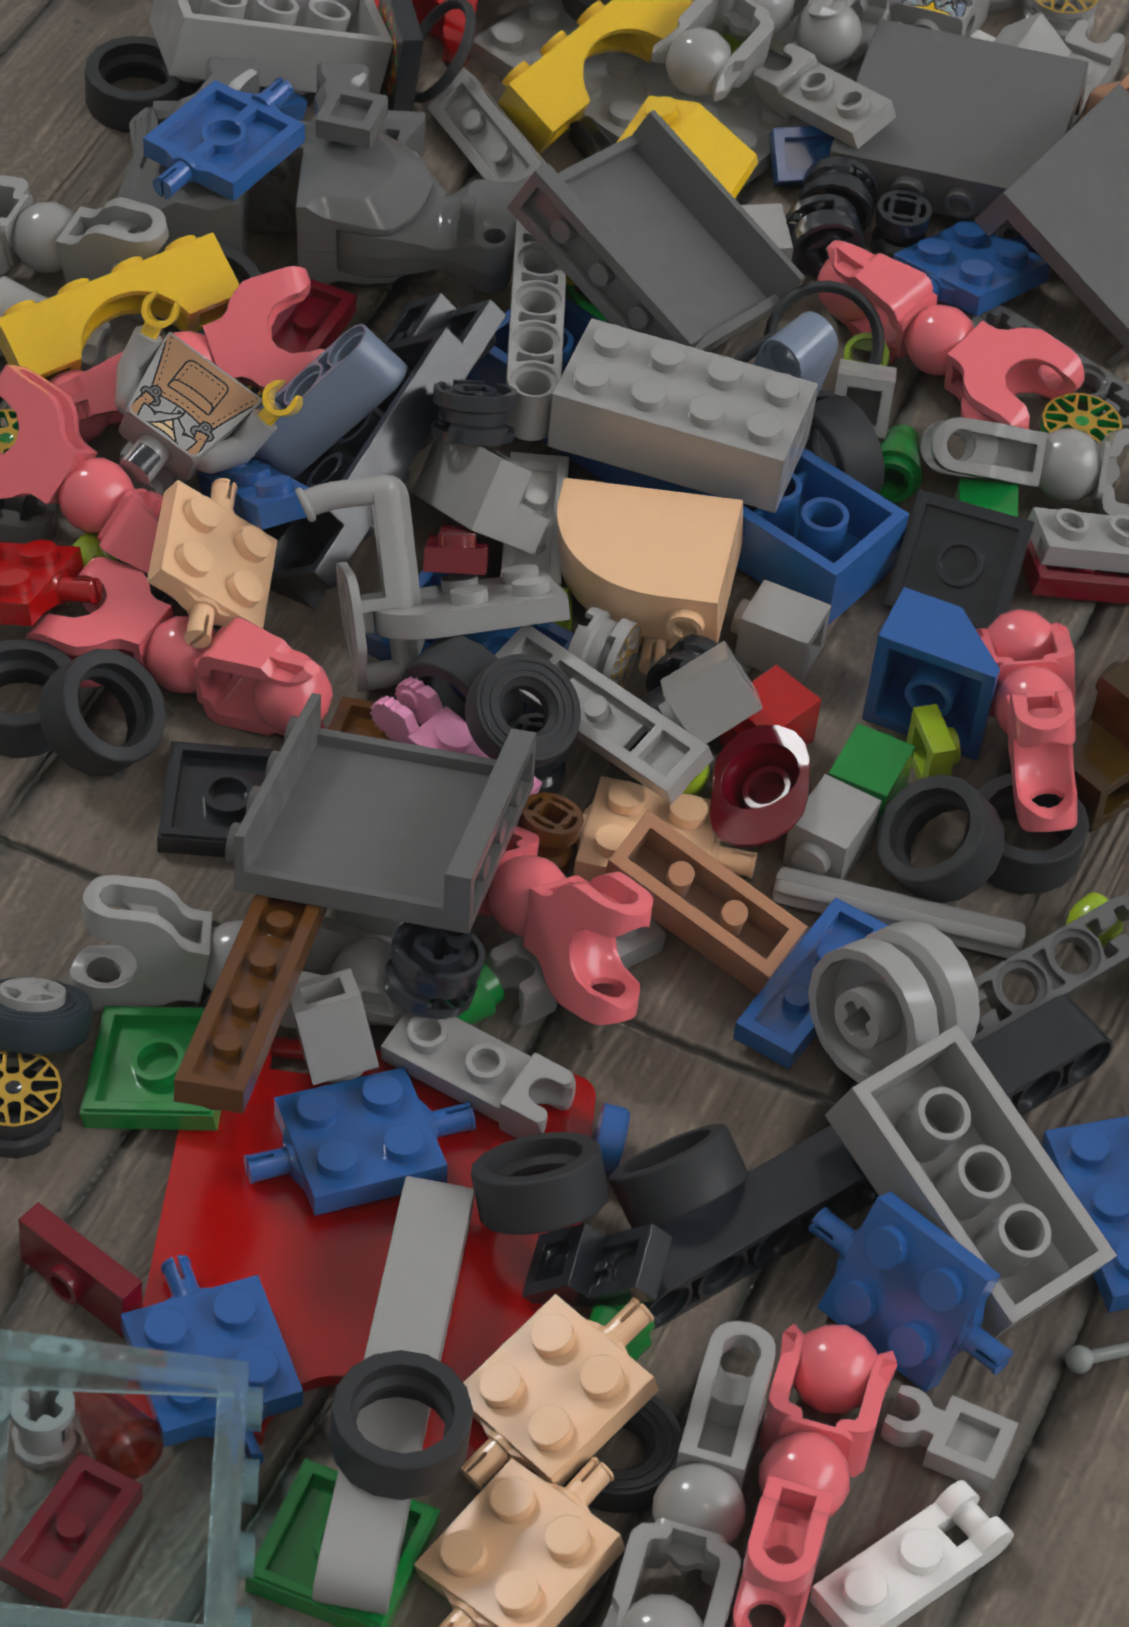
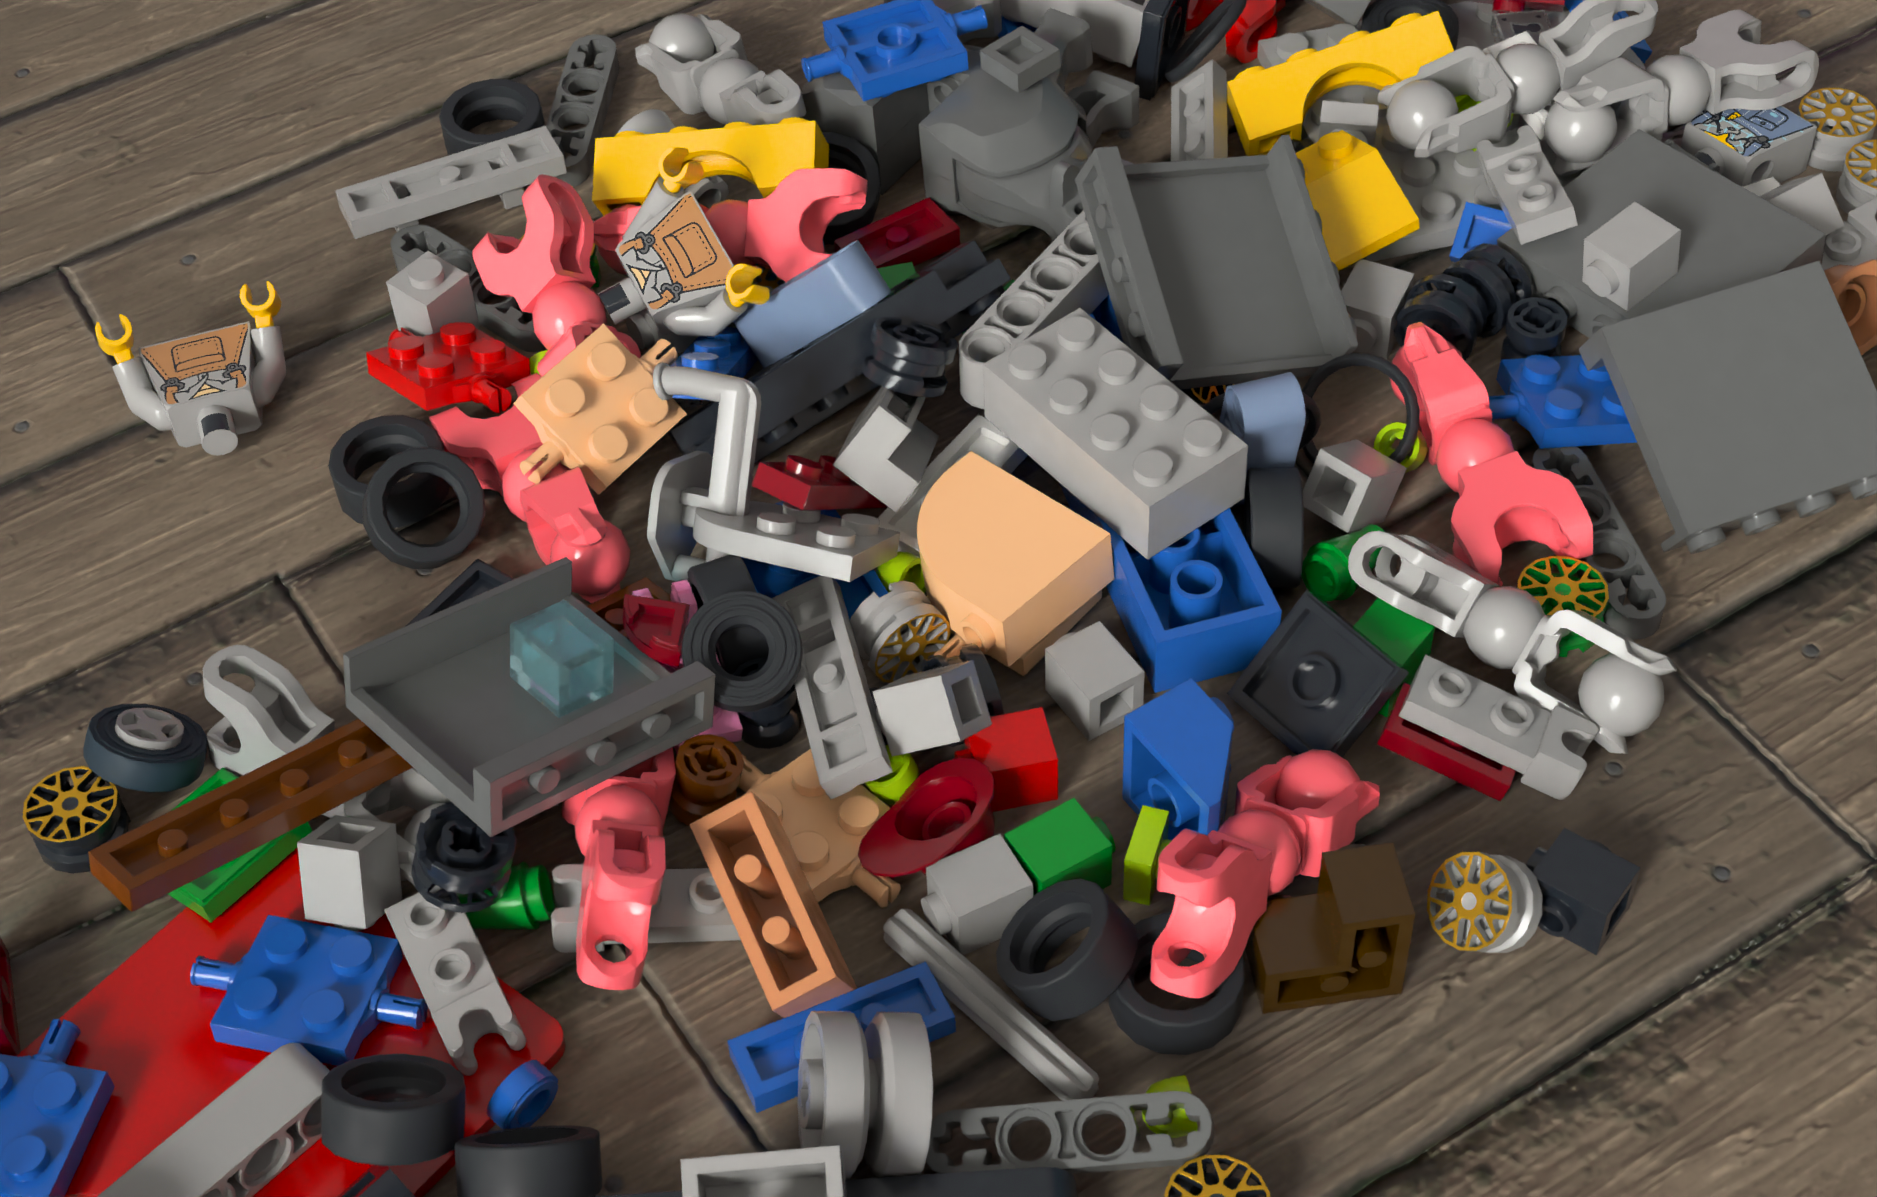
camera: 40 degrees right, 0 degrees up
(389, 773) = (561, 658): none -> clear light blue brick
(431, 722) = (656, 627): none -> dark red tile
(628, 91) = (1353, 118): none -> light grey tile
(962, 128) = (1631, 256): none -> light grey brick

